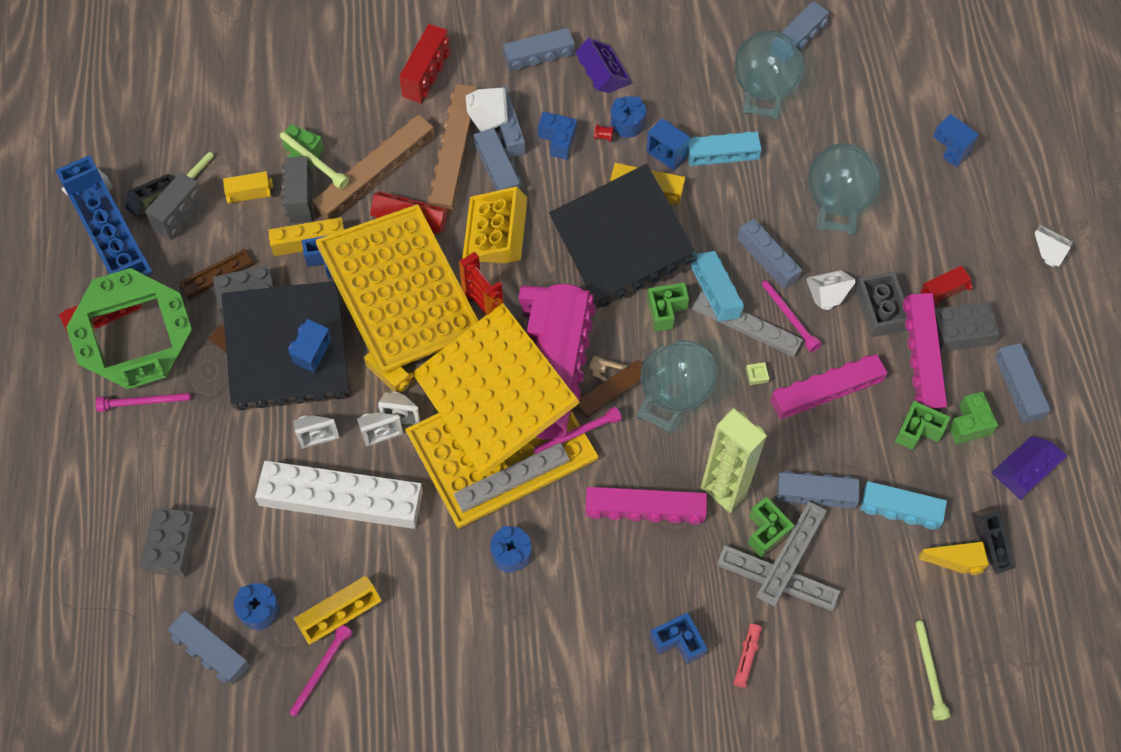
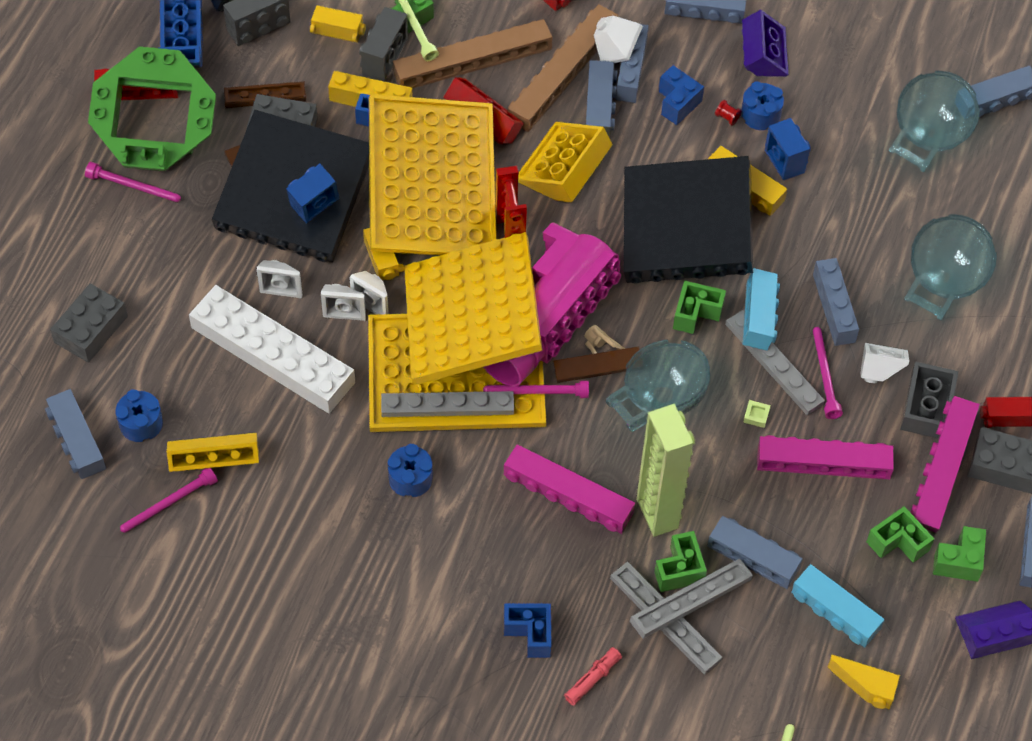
camera: 25 degrees right, 5 degrees down
(723, 148) = (846, 178): medium azure brick -> none
(992, 533) = (916, 682): black slope -> none

